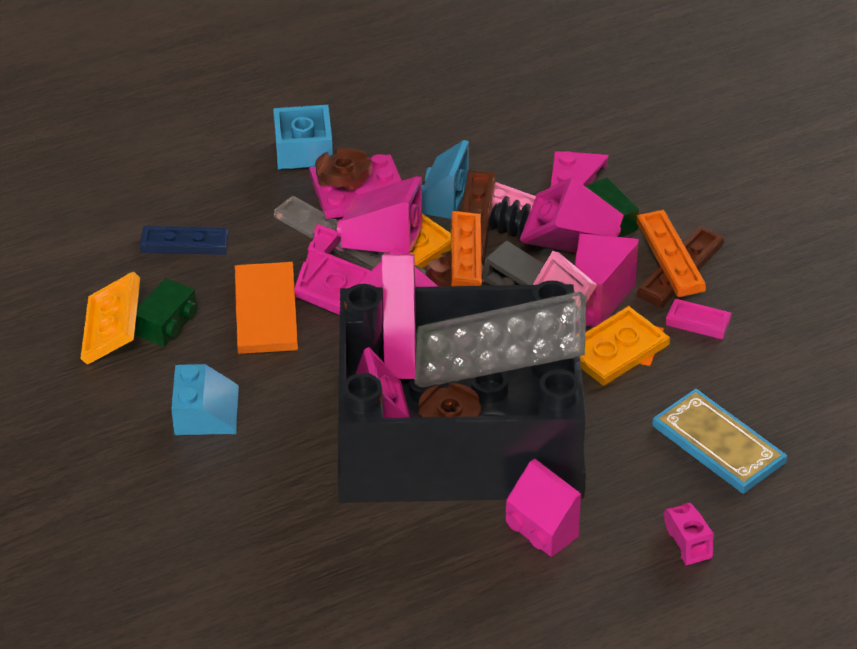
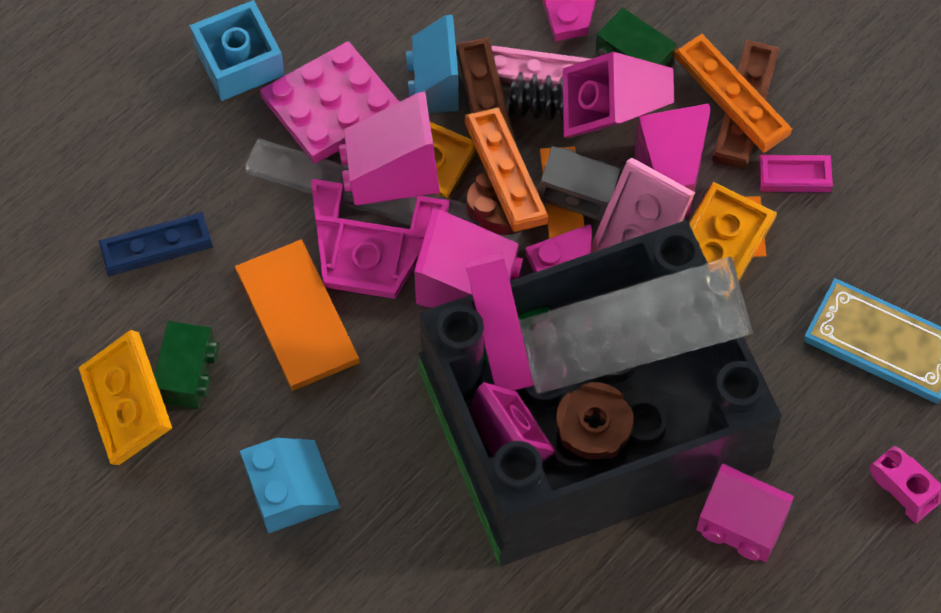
camera: 20 degrees left, 20 degrees up
(343, 169) = (312, 105): copper plate -> none

